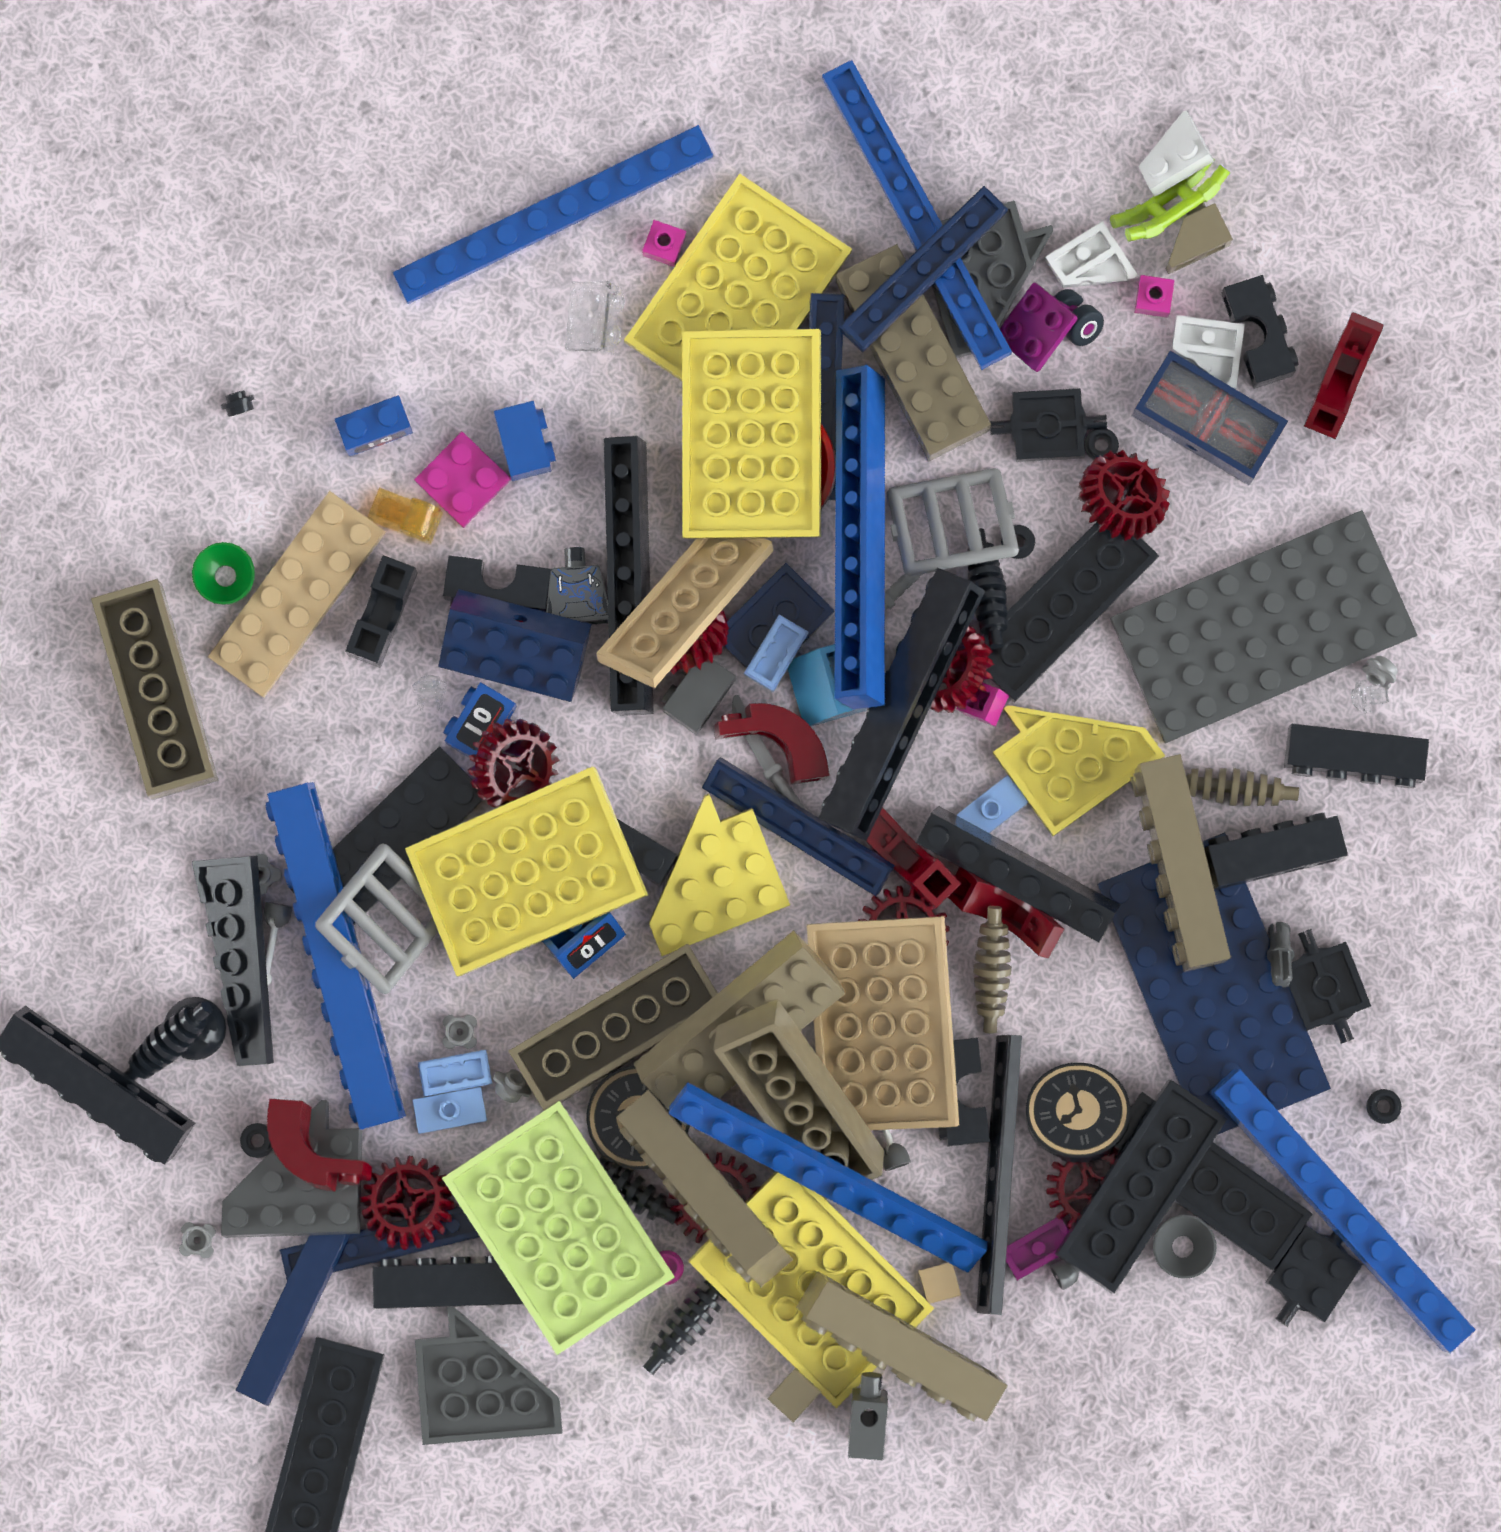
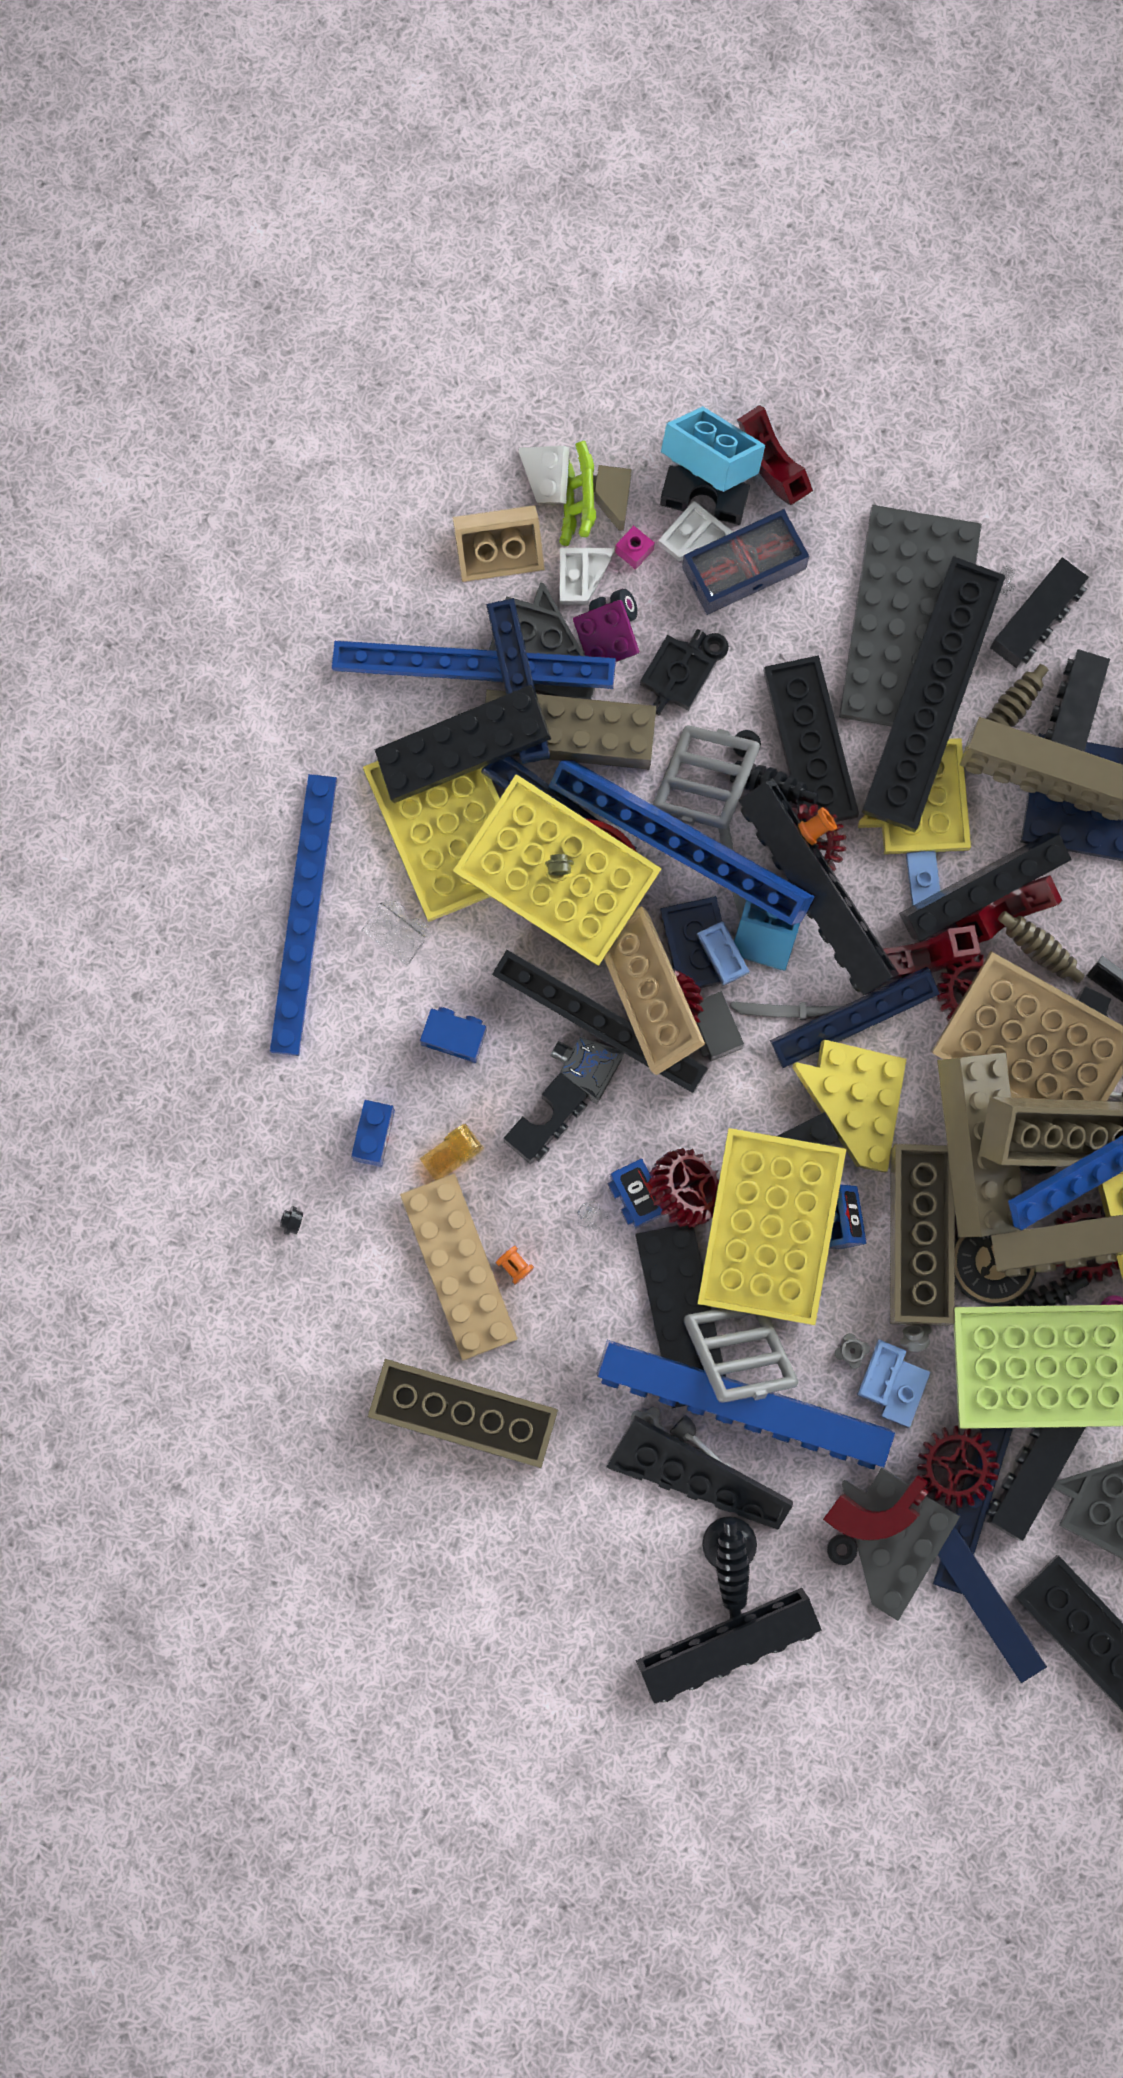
camera: 60 degrees left, 5 degrees down
(188, 1245) = (898, 1641): light grey plate -> none
(214, 558) = (398, 1298): green piece -> none
(332, 647) = (517, 1270): none -> orange bush
(383, 611) = (512, 1212): black arch -> none
(462, 479) = (452, 1096): dark pink plate -> none
(514, 645) = (600, 1132): dark blue brick -> none
(664, 254) = (377, 859): dark pink plate -> none
(753, 431) = (559, 865): none -> olive plate
(789, 731) = (785, 980): dark red arch -> none
(820, 256) = (462, 744): none -> black plate
(959, 662) = (817, 826): none -> orange bush
(995, 702) = (859, 837): dark pink plate -> none
(1067, 155) = (498, 543): none -> tan slope
(1104, 487) = (762, 650): dark red gear -> none
(1191, 697) = (933, 694): none -> black plate
(1306, 307) = (712, 448): none -> medium azure brick
(1380, 671) = (993, 560): light grey plate -> none

